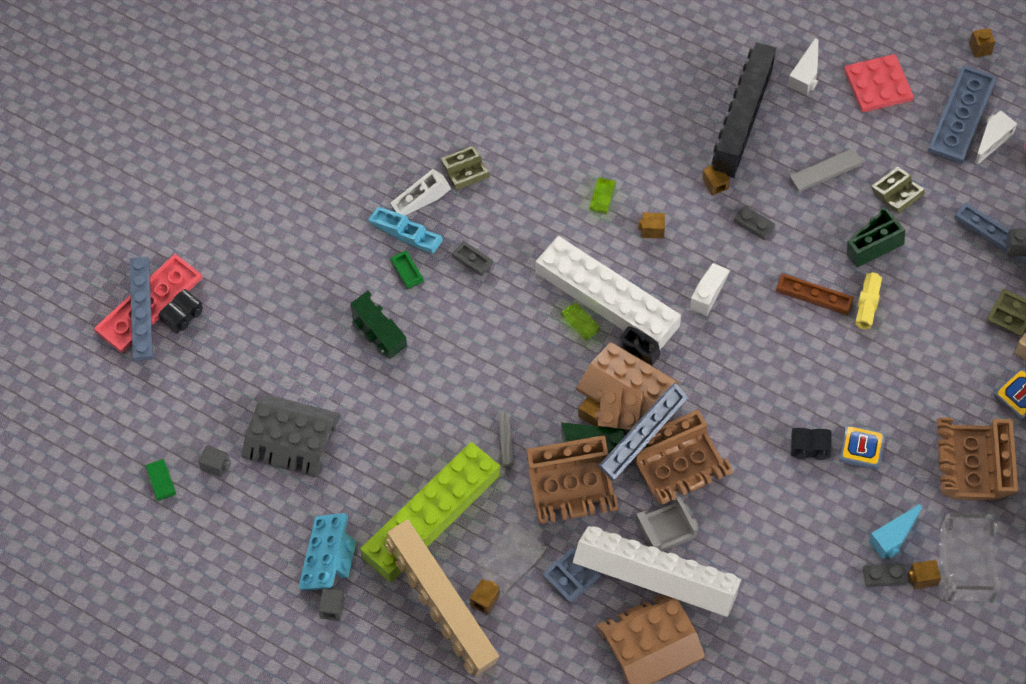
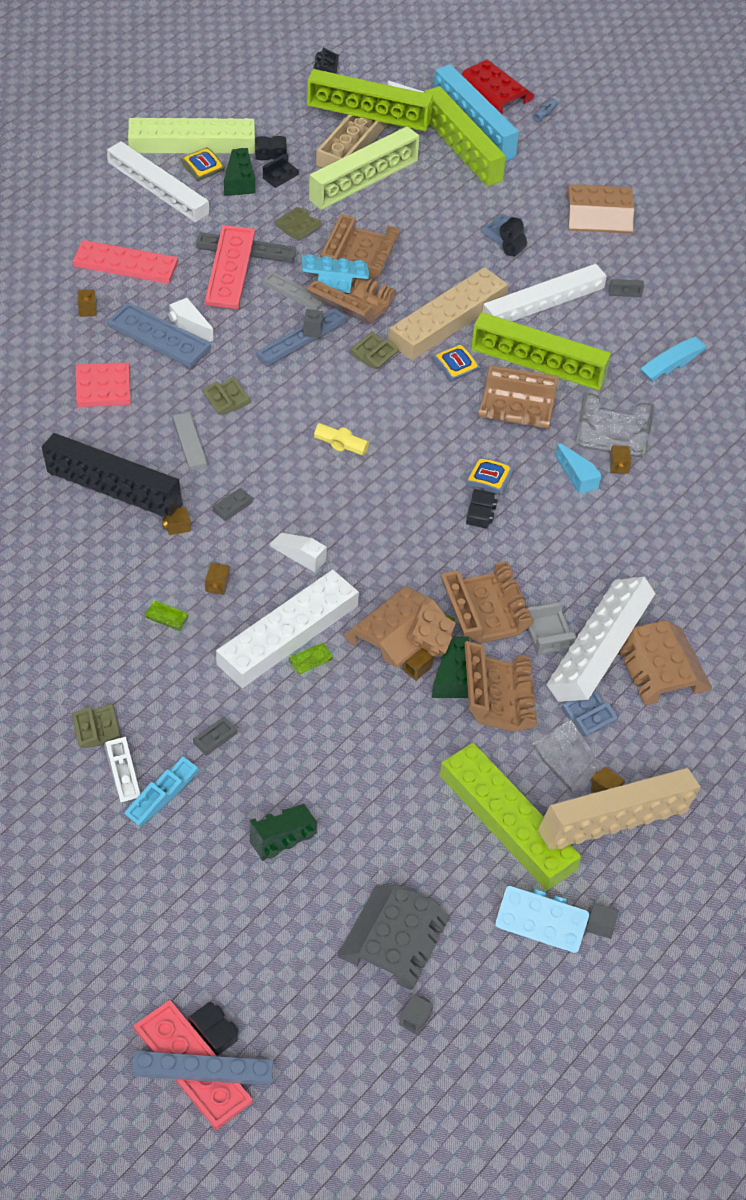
camera: 85 degrees left, 10 degrees down
(160, 479) = (427, 1076): green tile -> none
(406, 269) = (211, 799): green tile -> none
(505, 437) = (433, 742): light grey axle -> none
(639, 345) = (355, 610): black brick -> none
(643, 431) = (463, 615): sand blue plate -> none
(804, 74) = (70, 426): white slope -> none
(814, 294) = (322, 477): dark orange tile -> none
(876, 238) = (278, 417): dark green wedge -> none
(884, 575) = (614, 488): dark grey plate -> none

